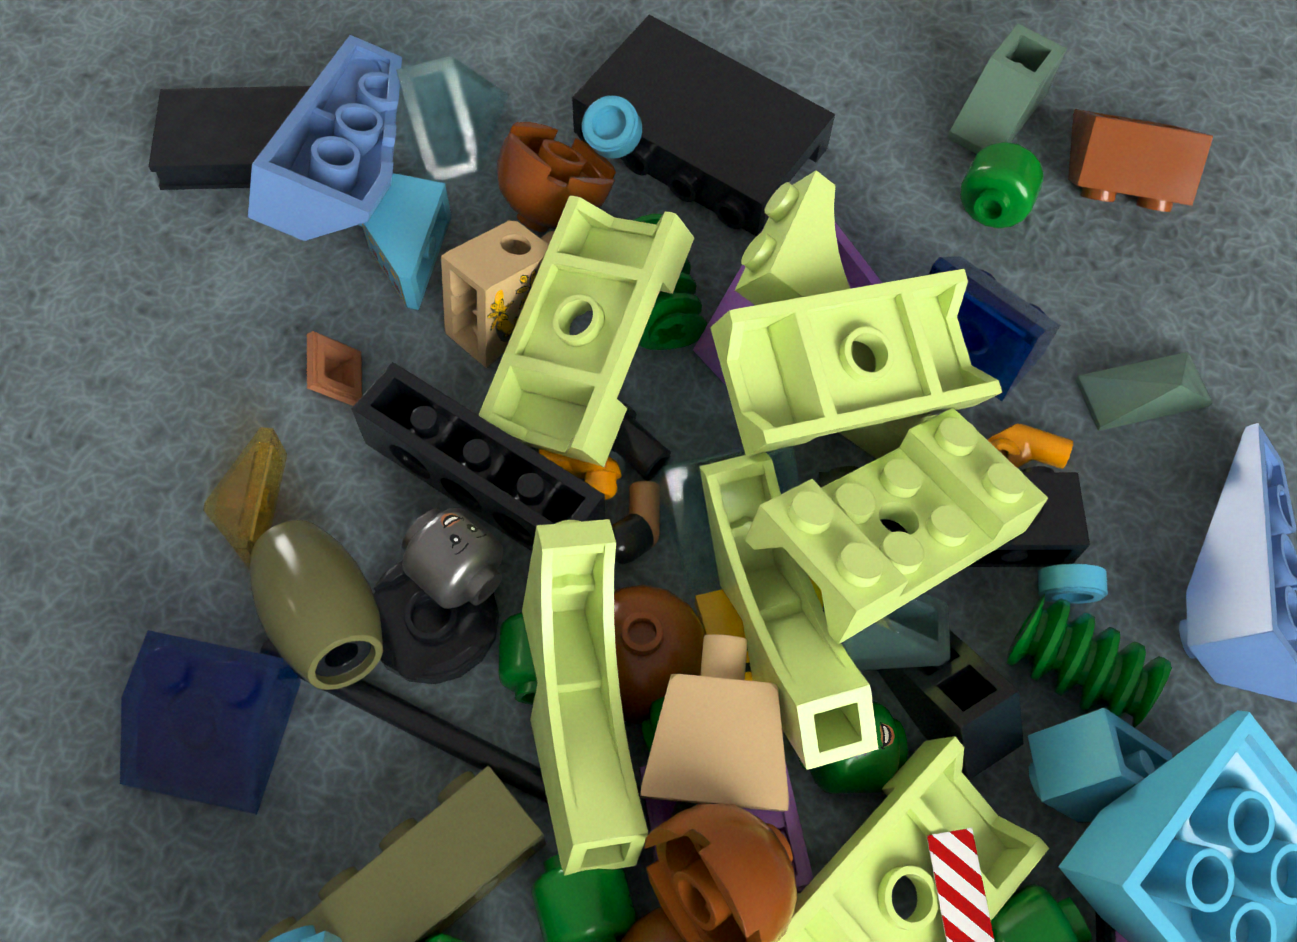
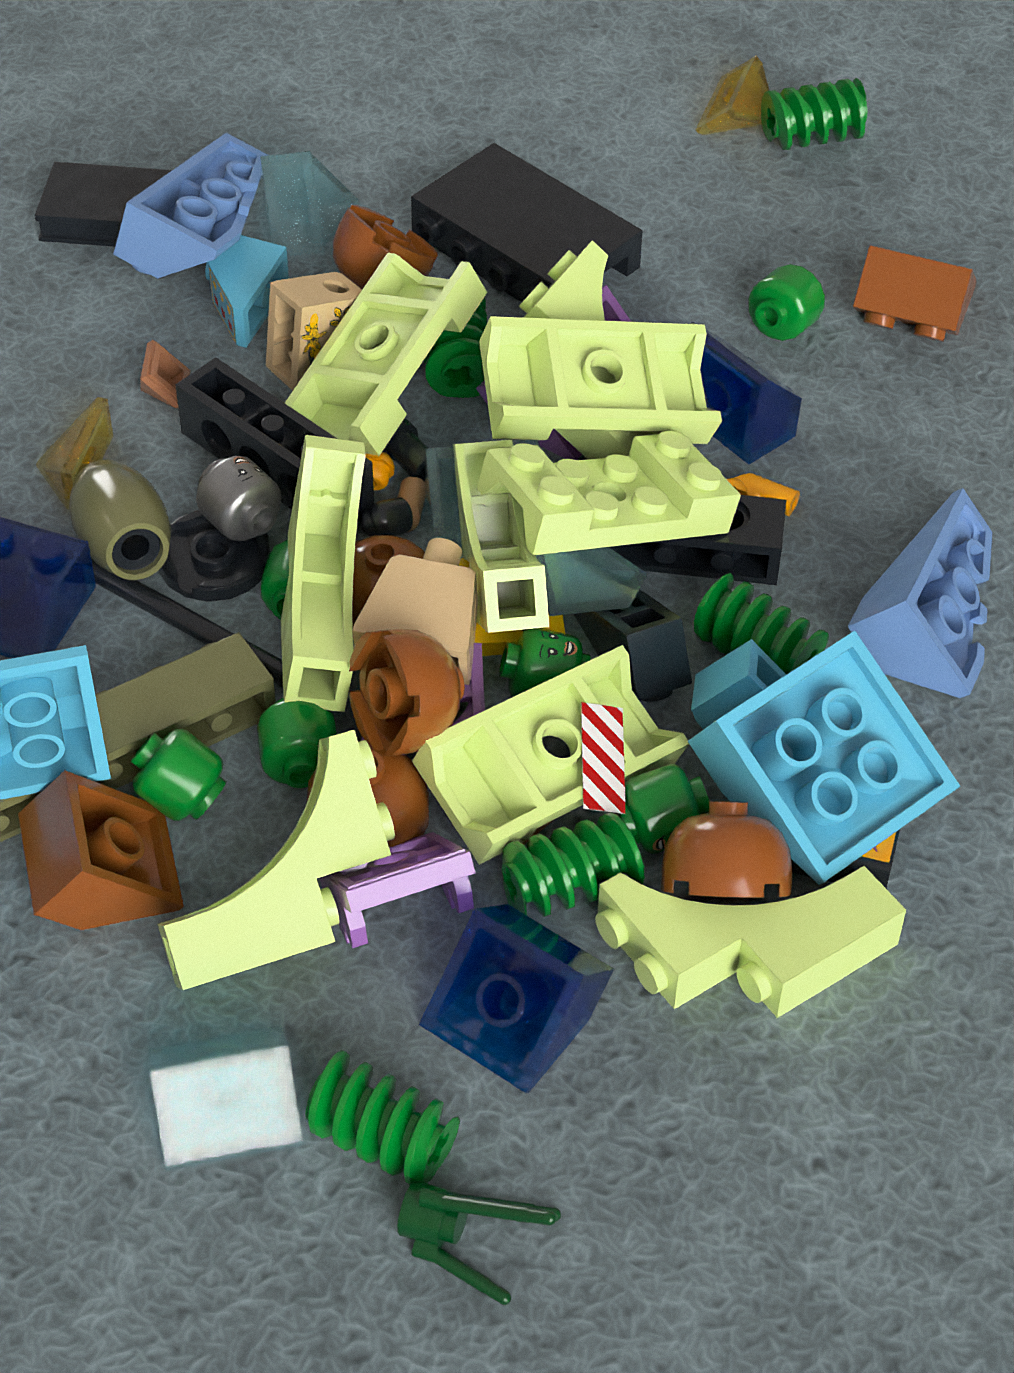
camera: 10 degrees right, 15 degrees down
(612, 127) = (440, 219): medium azure tile -> none
(1008, 90) = (811, 228): sand green slope -> none
(1073, 583) = (772, 579): medium azure tile -> none
(1143, 391) = (879, 469): sand green slope -> none

